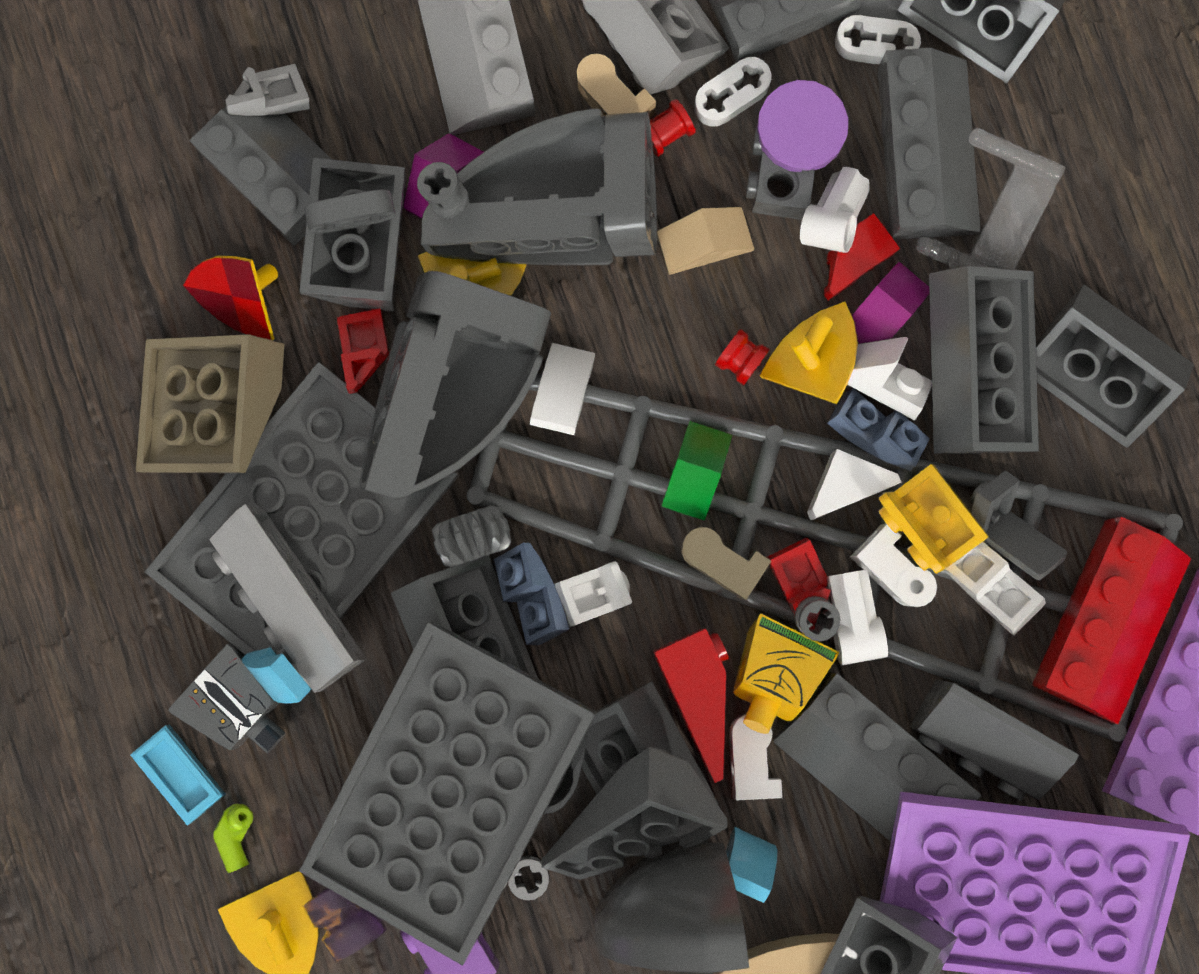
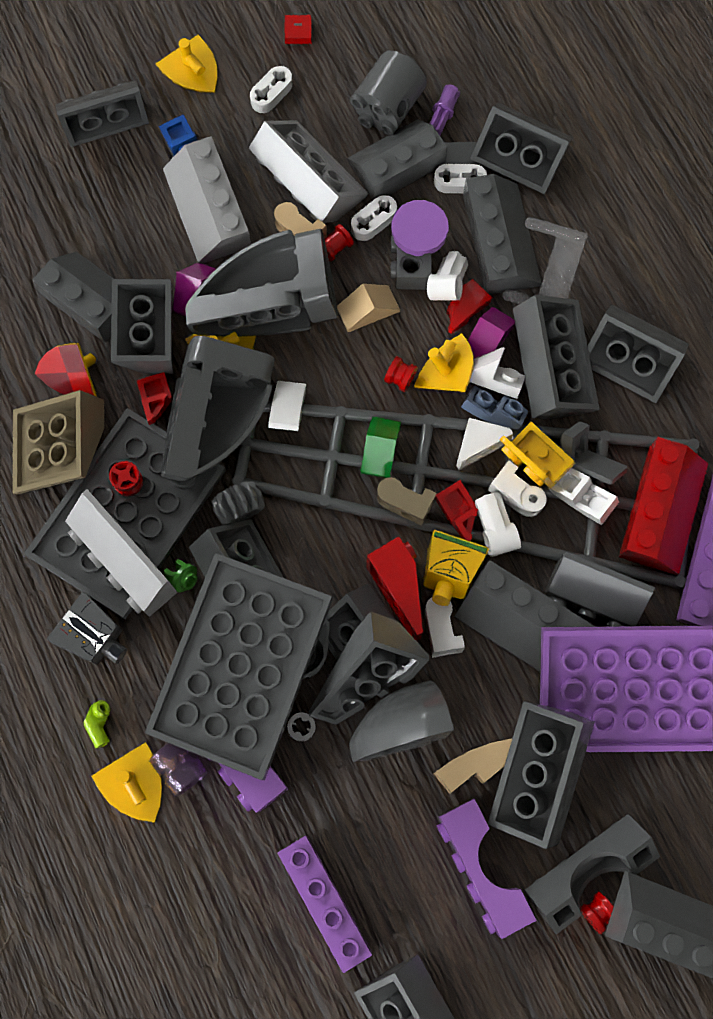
camera: 10 degrees left, 10 degrees down
(178, 774) = (56, 687): medium azure tile -> none
(269, 93) = (80, 249): light grey slope -> none
(276, 675) = (117, 603): medium azure slope -> none
(299, 473) = (121, 473): none -> red wheel
(349, 211) = (138, 306): dark grey beam -> none
(379, 638) = (184, 578): none -> bright green plate
(449, 200) = (192, 286): dark grey bush -> none
(528, 583) = (280, 533): sand blue slope -> none
(594, 593) = (322, 533): white bracket -> none
(752, 864) = (452, 691): medium azure slope -> none
(821, 632) = (475, 534): dark grey bush -> none

